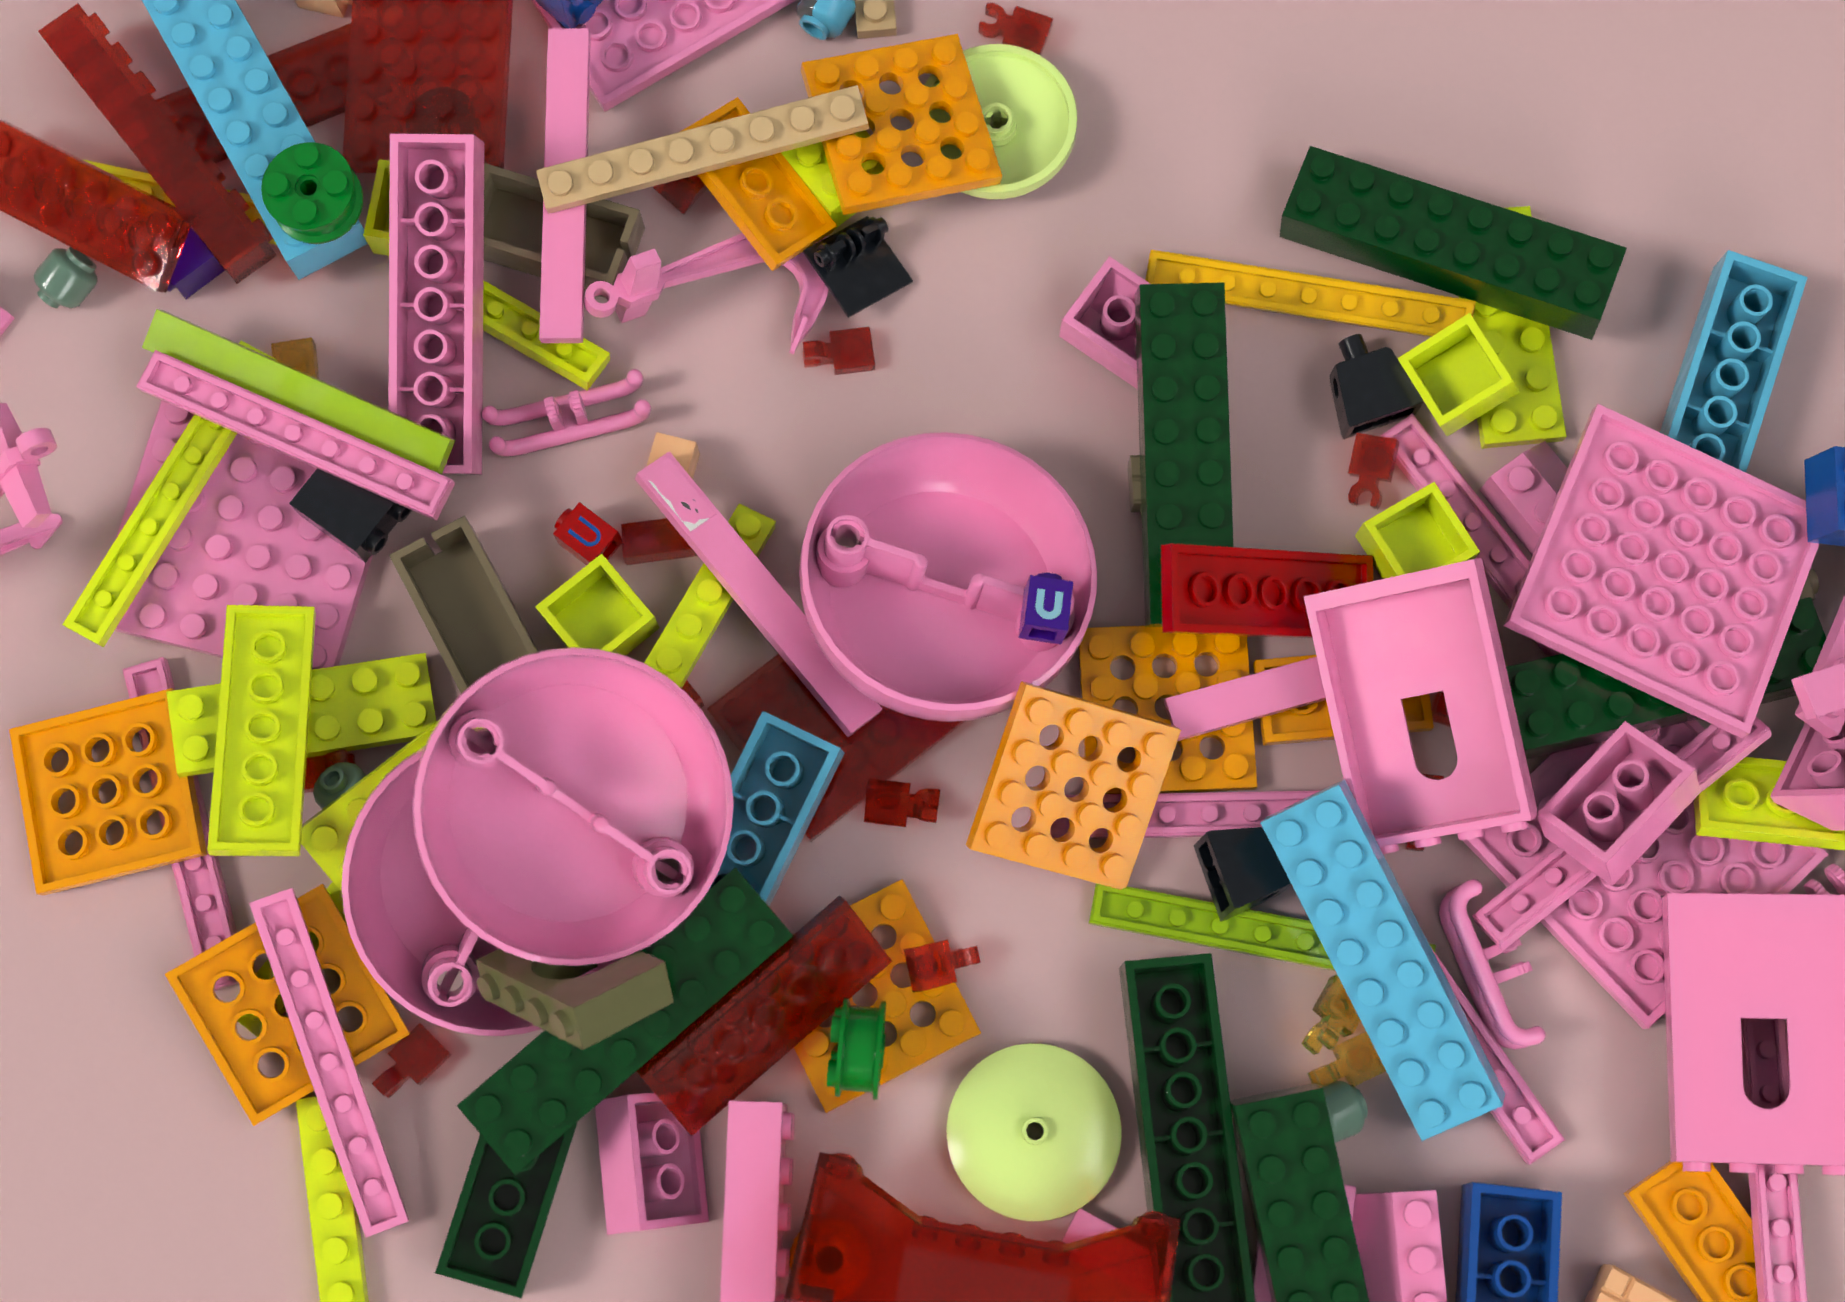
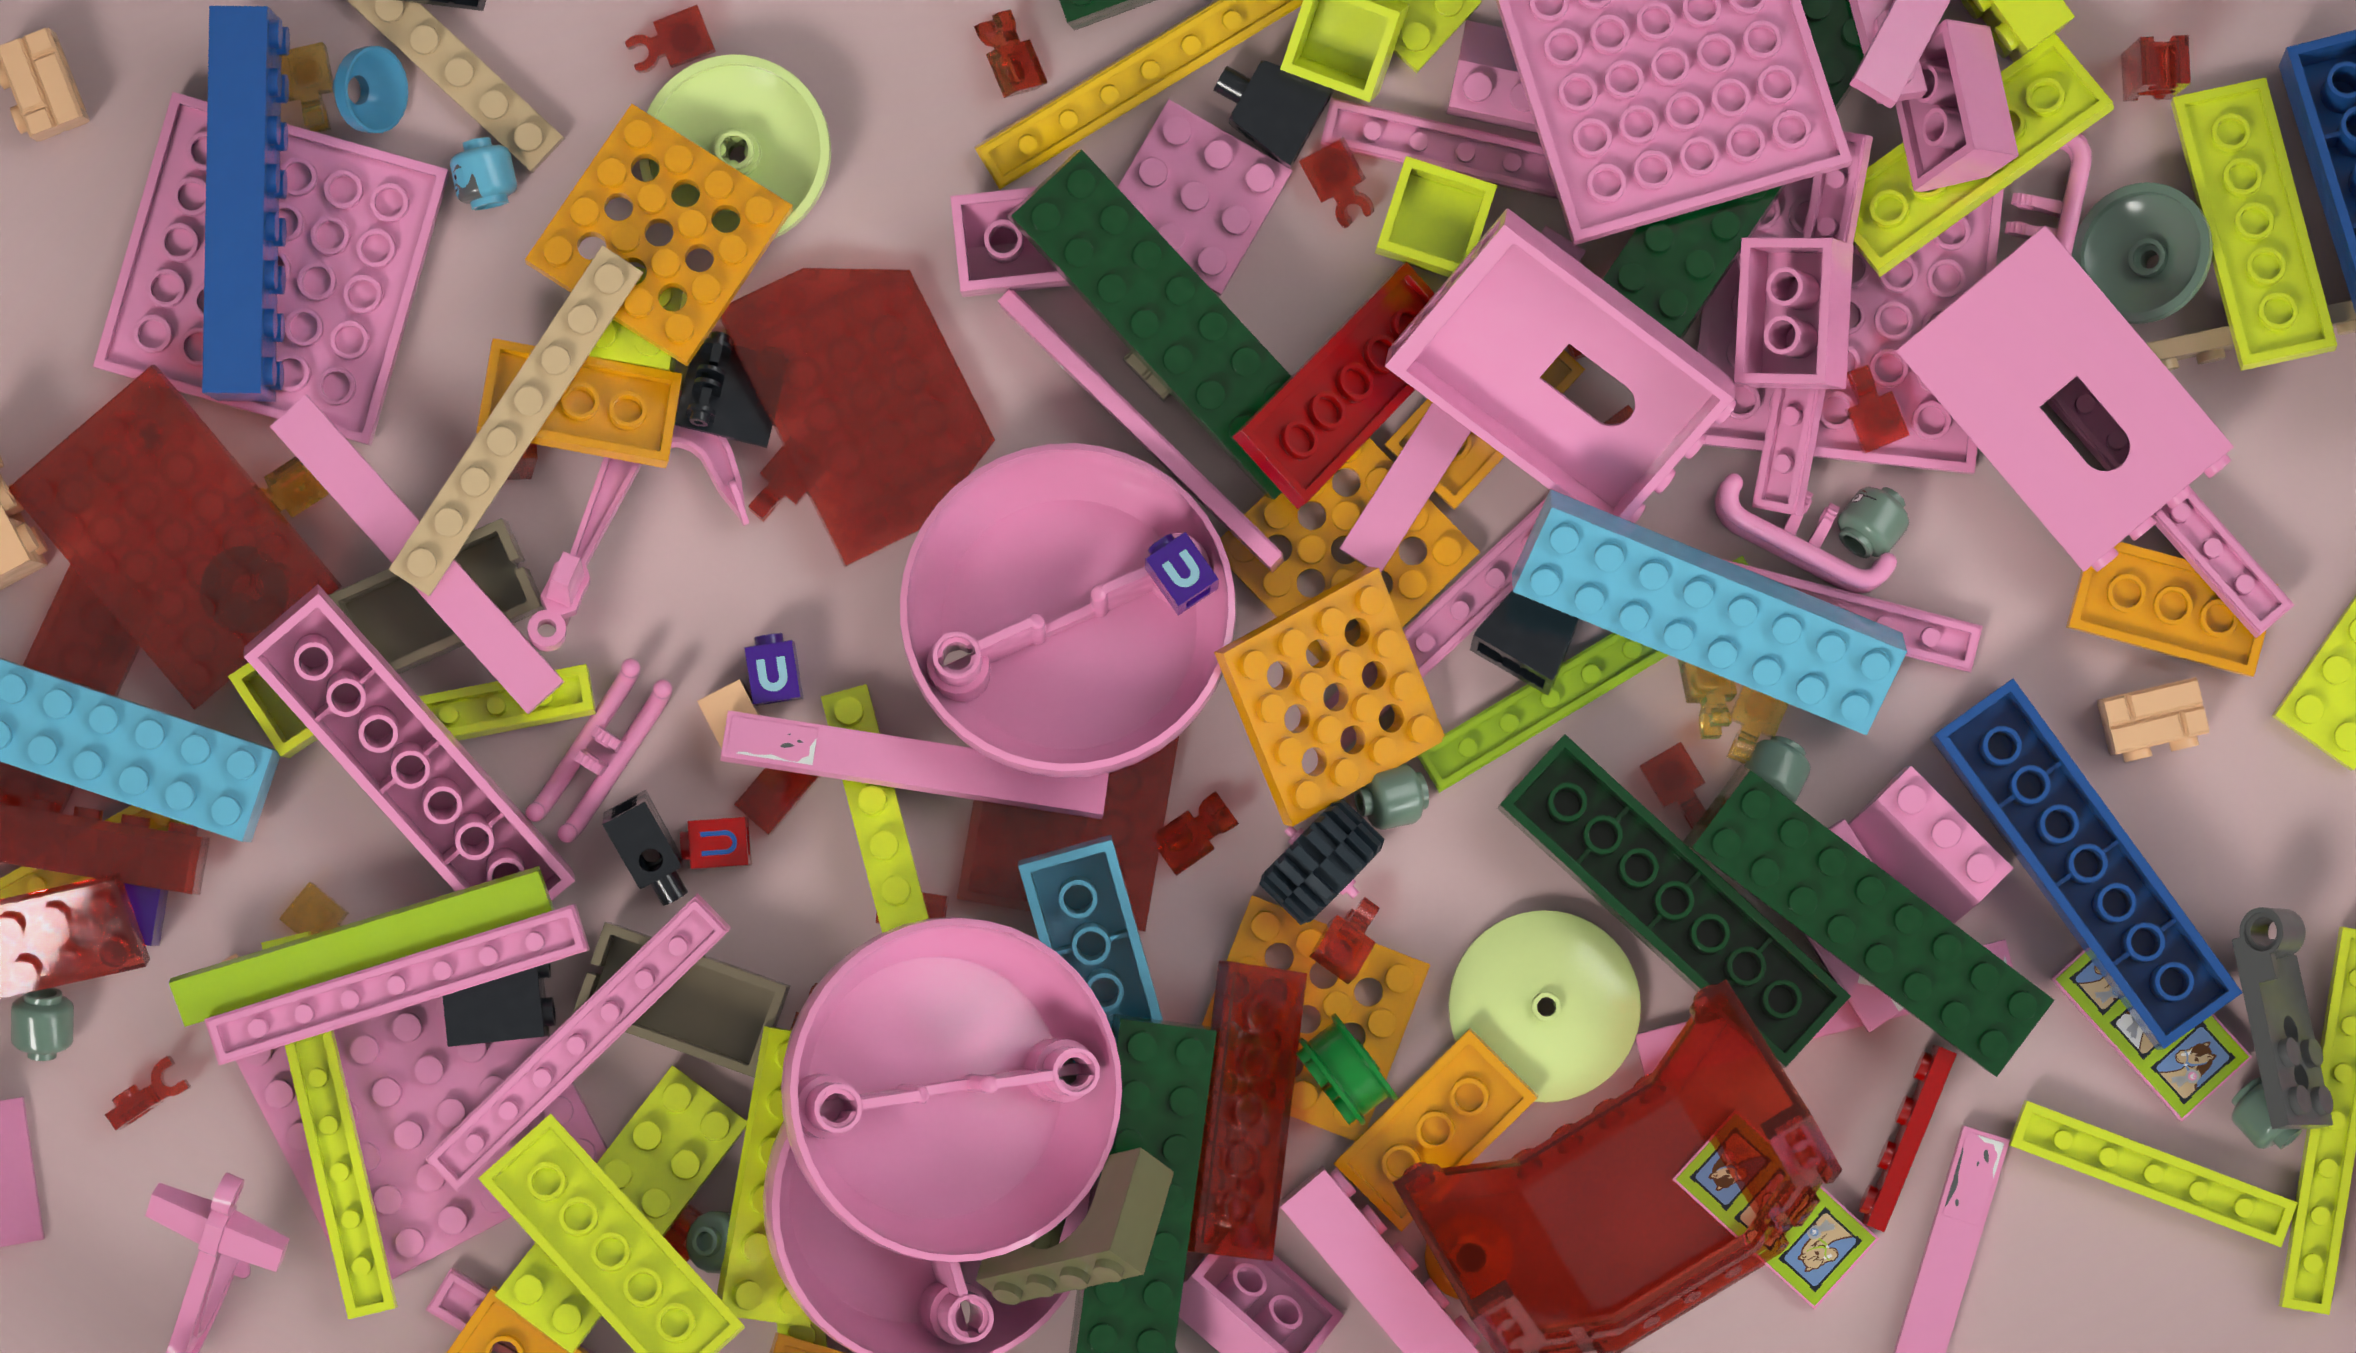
camera: 40 degrees left, 10 degrees up
(75, 379) = (135, 1103): none -> clear red plate
(312, 193) = (187, 759): green wheel -> none
(376, 575) = (578, 1042): none -> bright pink tile
(528, 92) = (293, 487): none -> clear yellow plate
(538, 478) = (639, 827): none -> black torso
(598, 611) = (795, 905): neon yellow piece -> none
(723, 460) = (773, 670): none -> dark purple brick
(897, 1143) = (1438, 1120): none -> light orange plate
(936, 336) = (860, 398): none -> clear red plate
(969, 893) = (1322, 861): none -> black wheel
(1055, 896) = (1393, 798): none -> sand green head
(1101, 514) = (1141, 430): none -> bright pink tile
(1222, 217) = (1012, 61): none -> clear red plate
(1258, 1055) = (1675, 778): none -> clear red plate
(1278, 402) = (1203, 191): none -> bright pink plate
(1547, 1000) = (1873, 522): none -> sand green head
(1609, 929) = (1875, 417): none -> clear red plate

